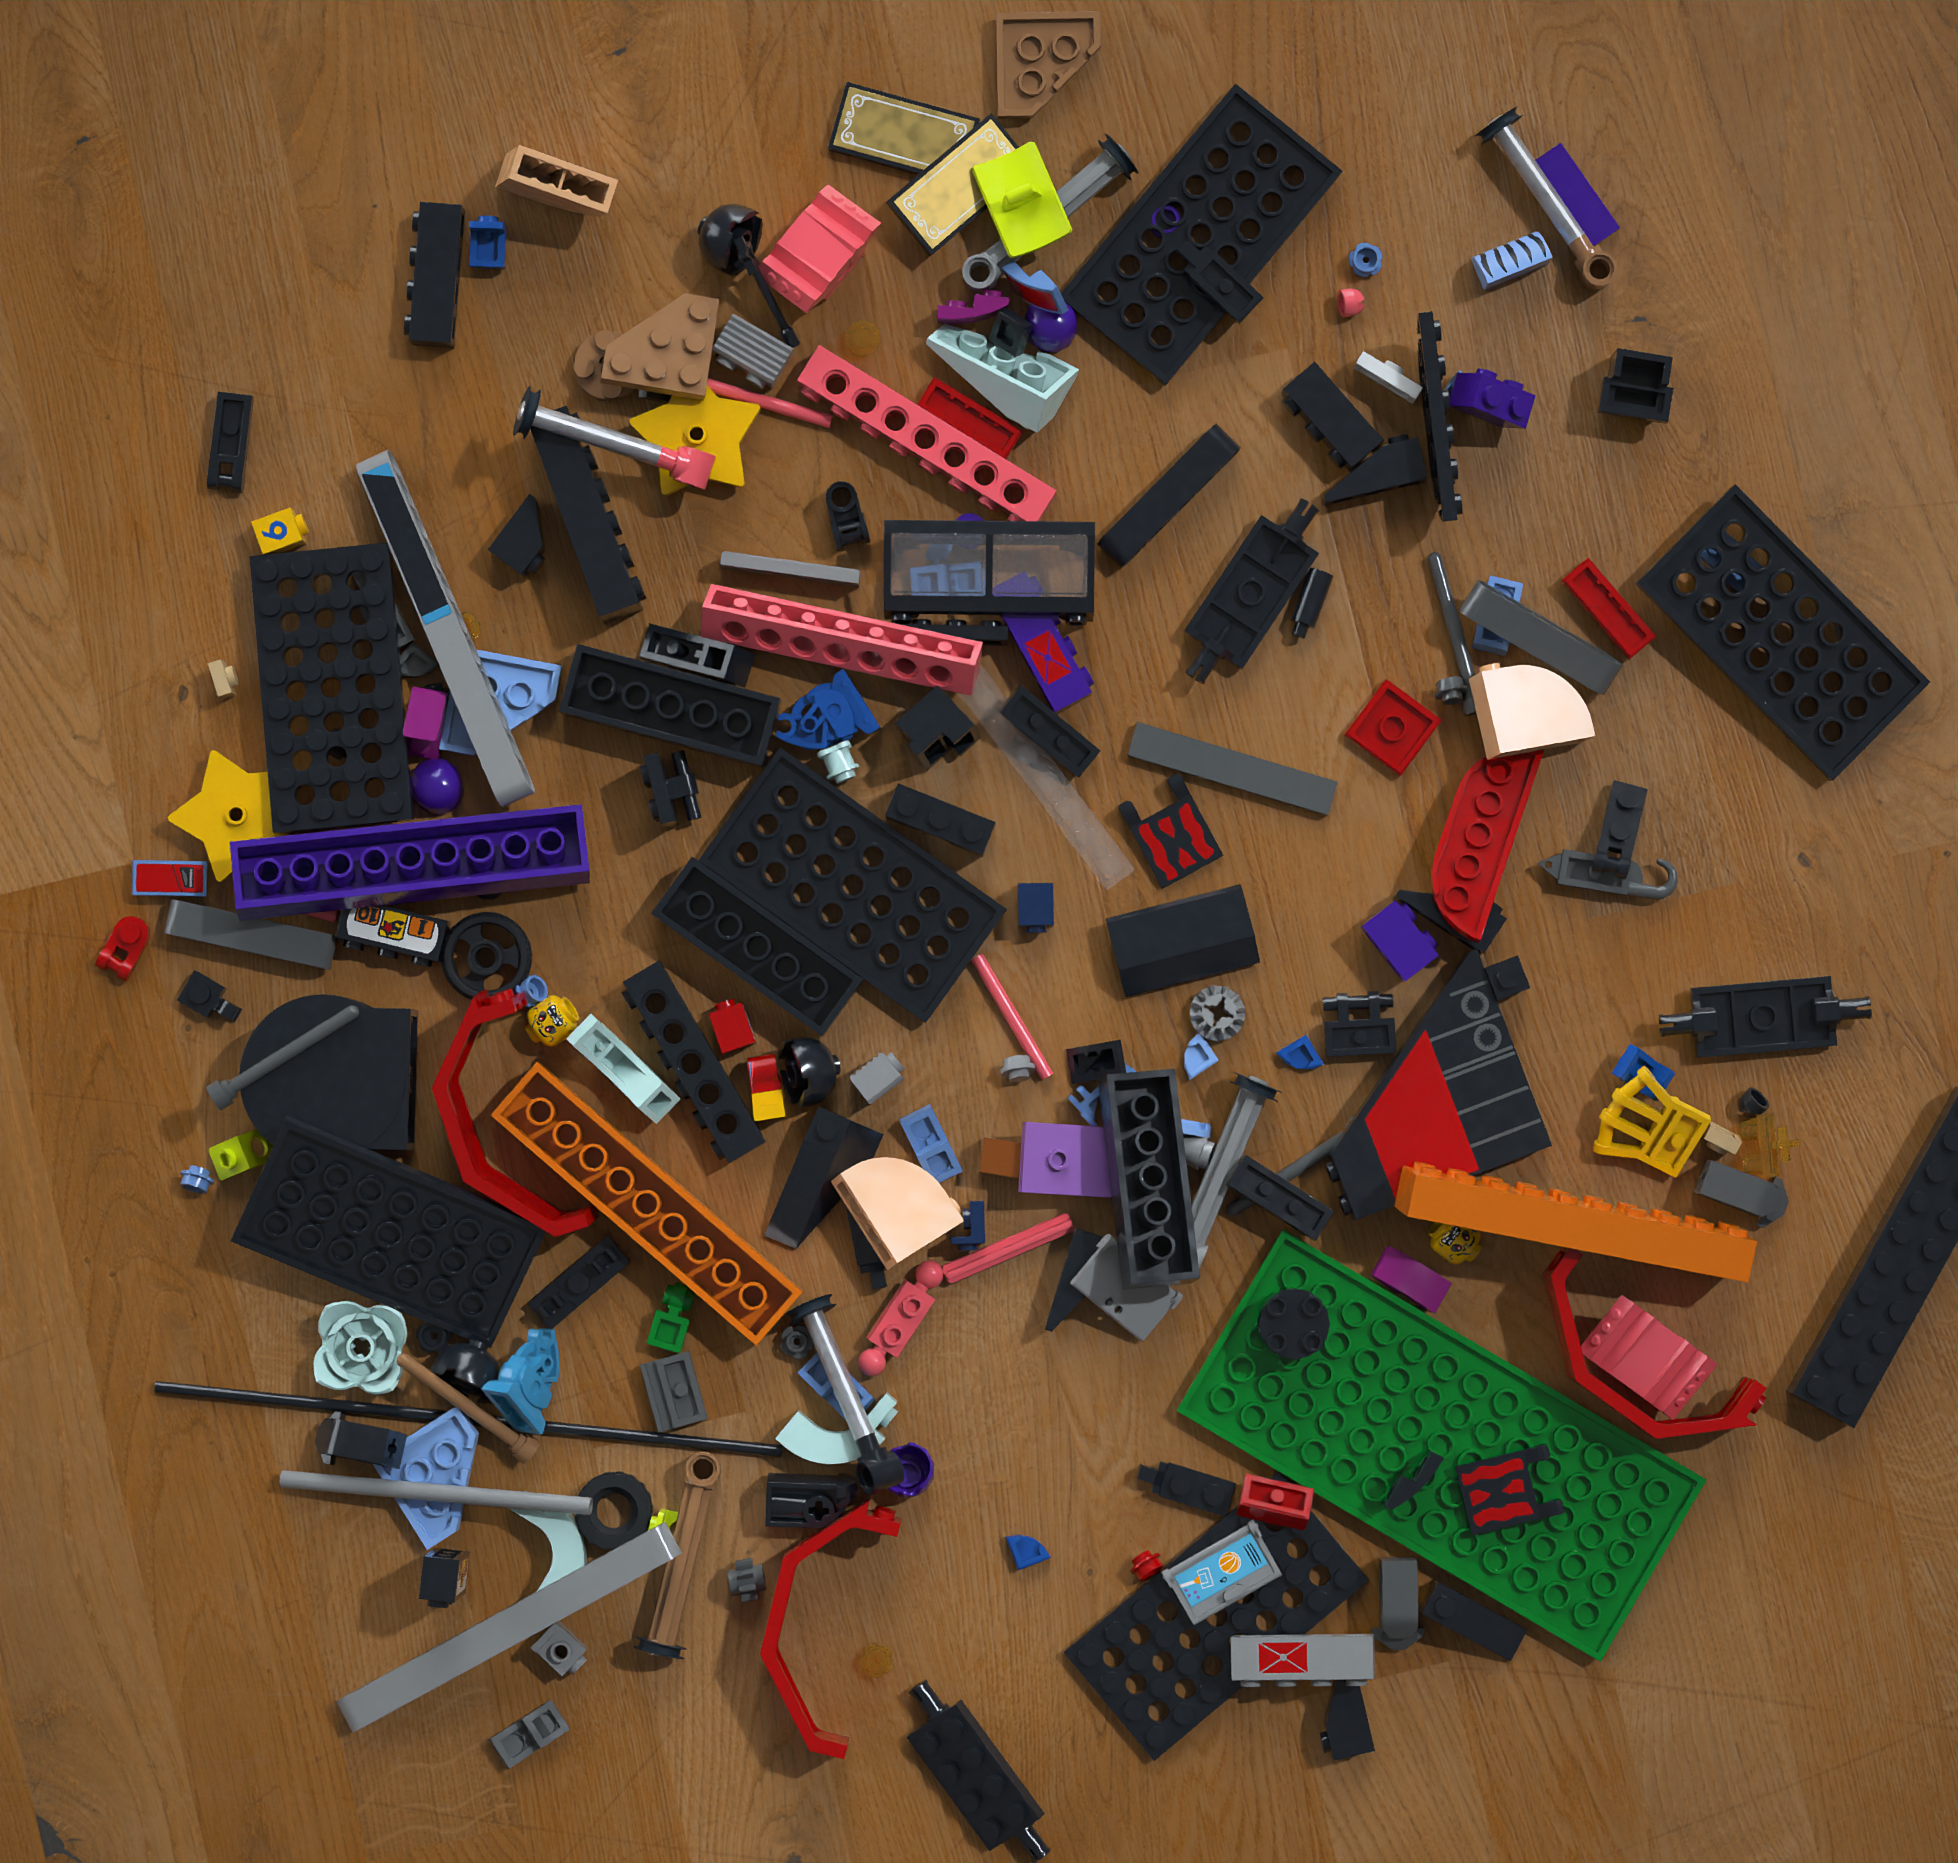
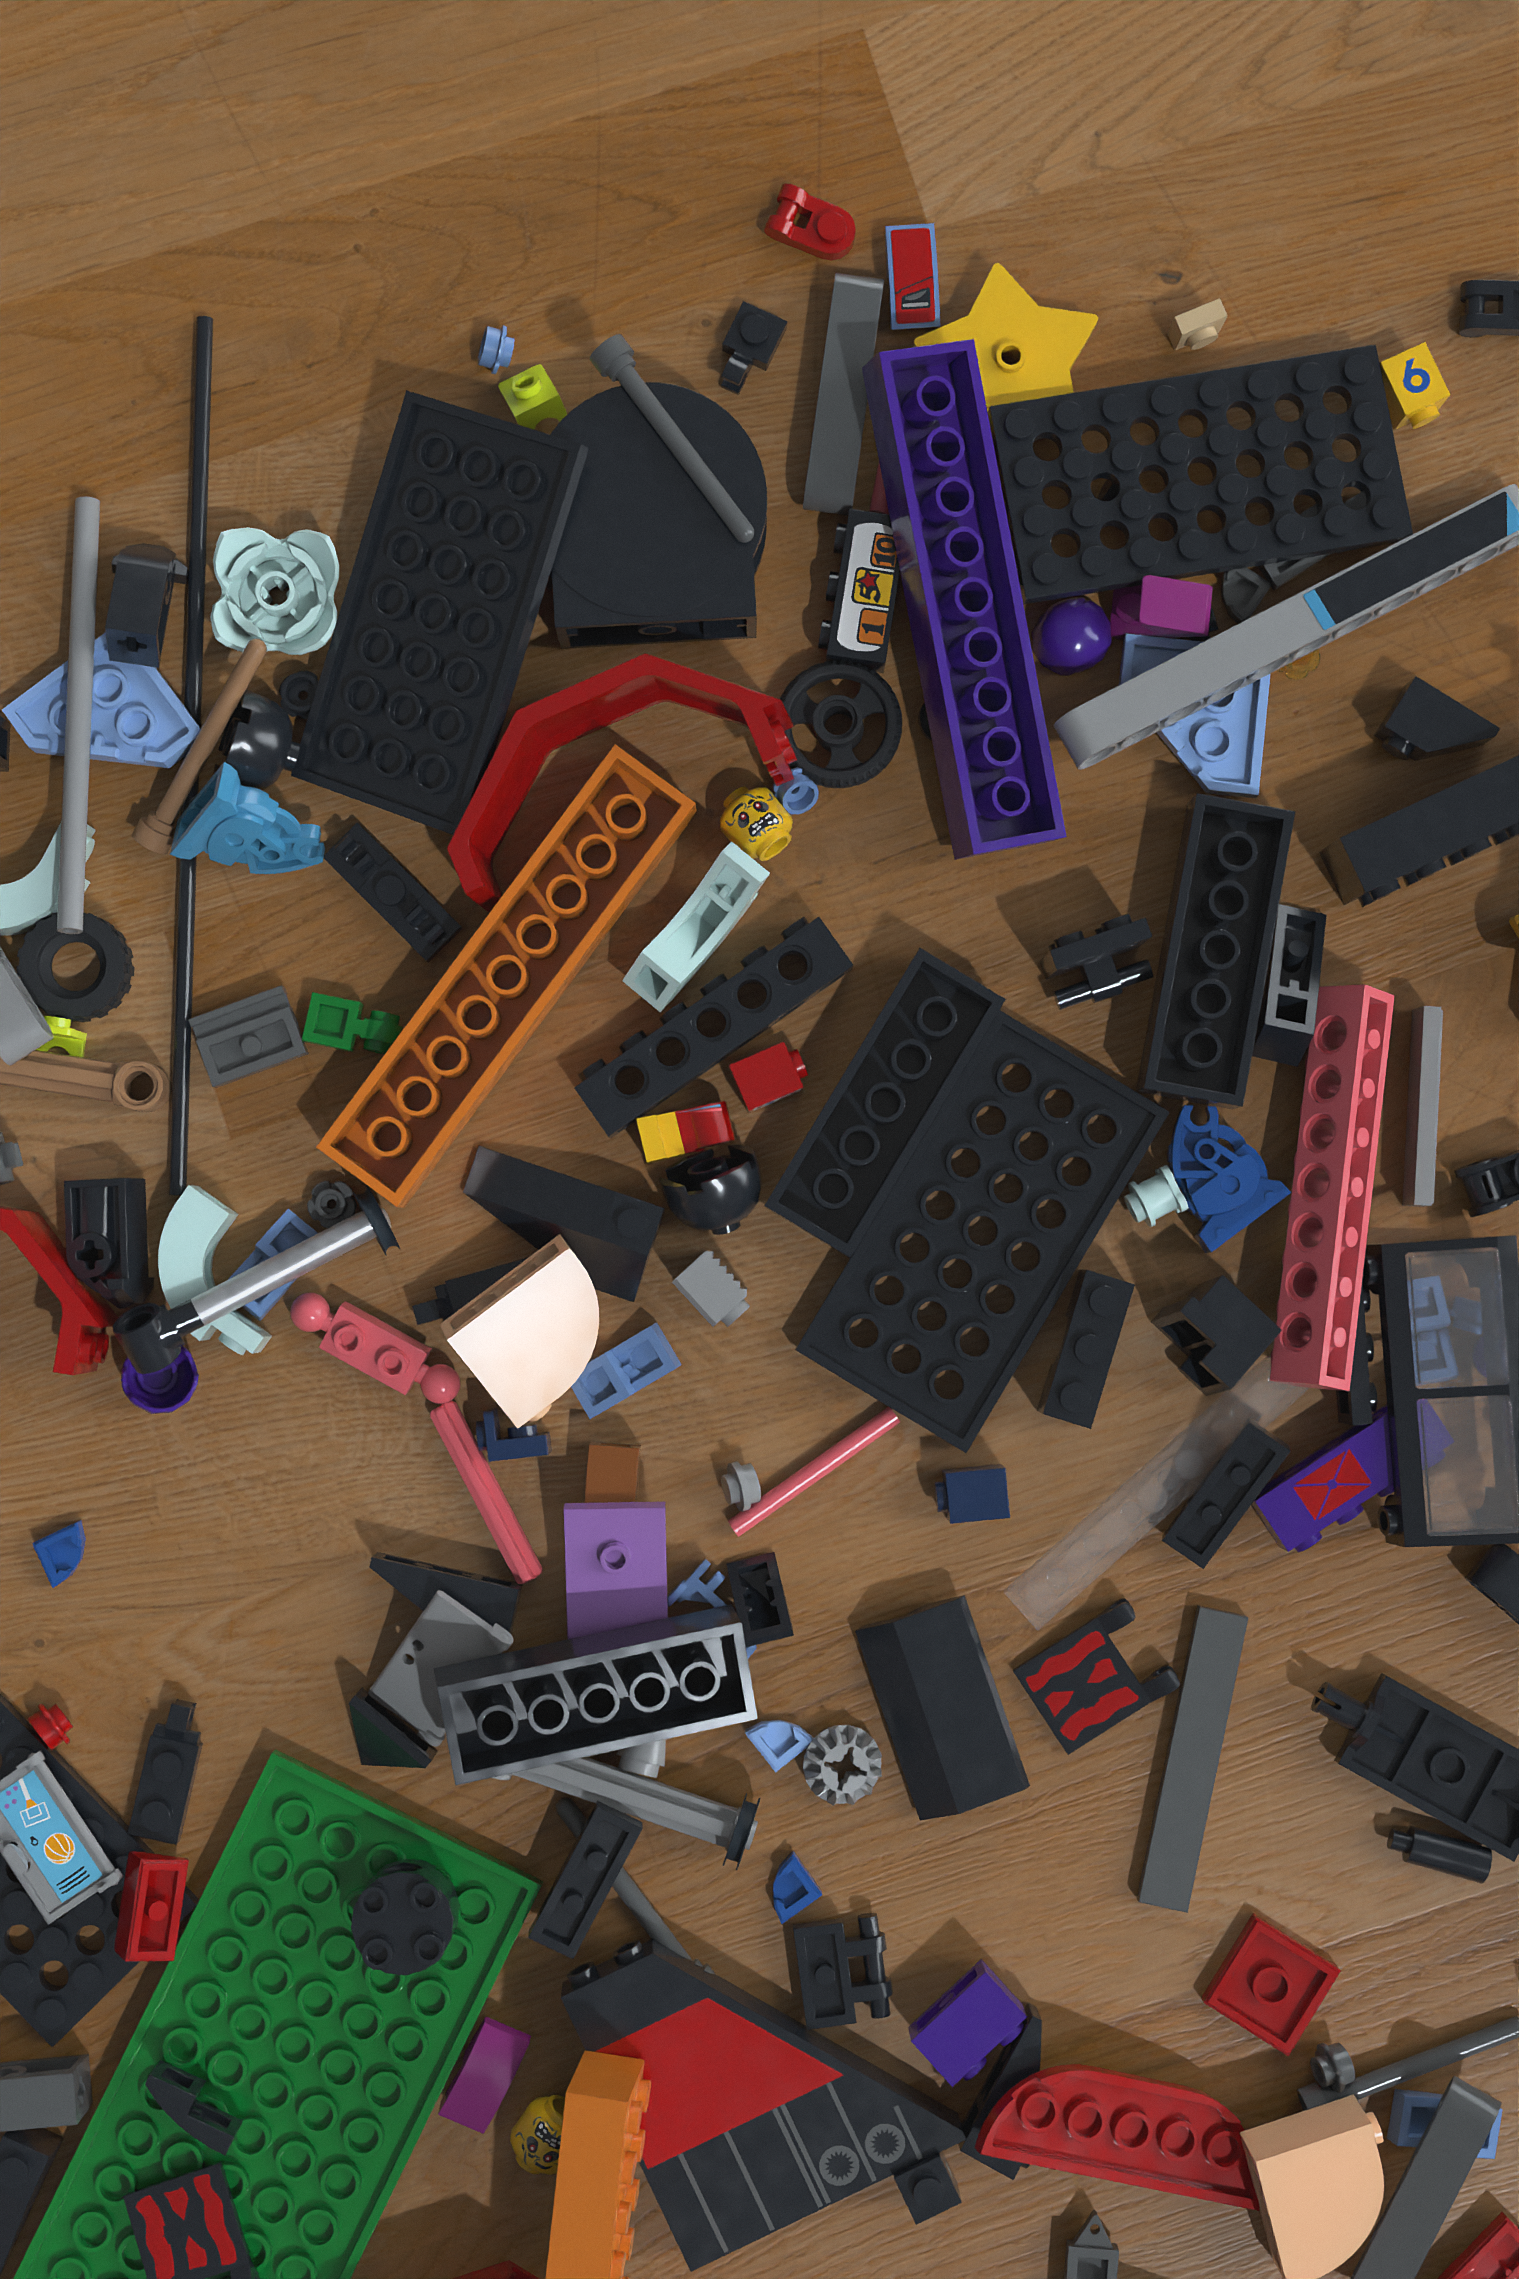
camera: 80 degrees right, 0 degrees up
(1174, 1333) = (384, 1738): none -> black slope
(1196, 1128) = (675, 1751): light blue tile -> none

